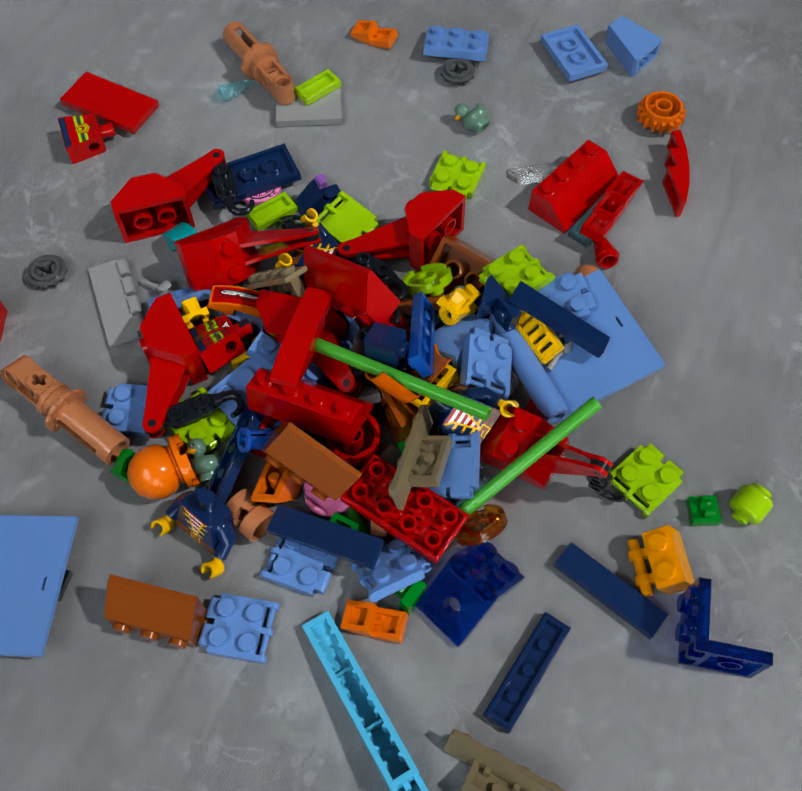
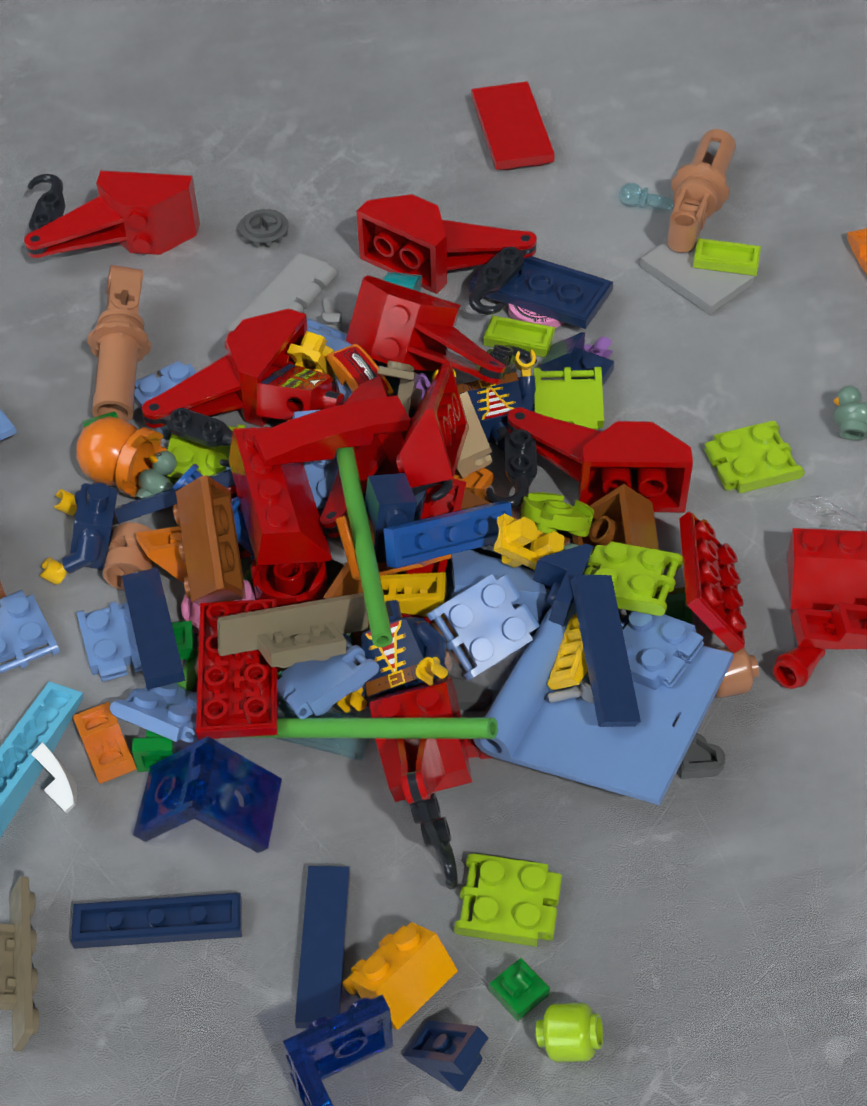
camera: 55 degrees right, 10 degrees down
(84, 136) = (446, 137): red torso -> none
(400, 668) = (63, 788): none -> white slope
(482, 526) = (286, 757): clear orange tile -> none
(540, 243) = (712, 581): none -> red tile
(727, 568) = (447, 1052): none -> dark blue slope

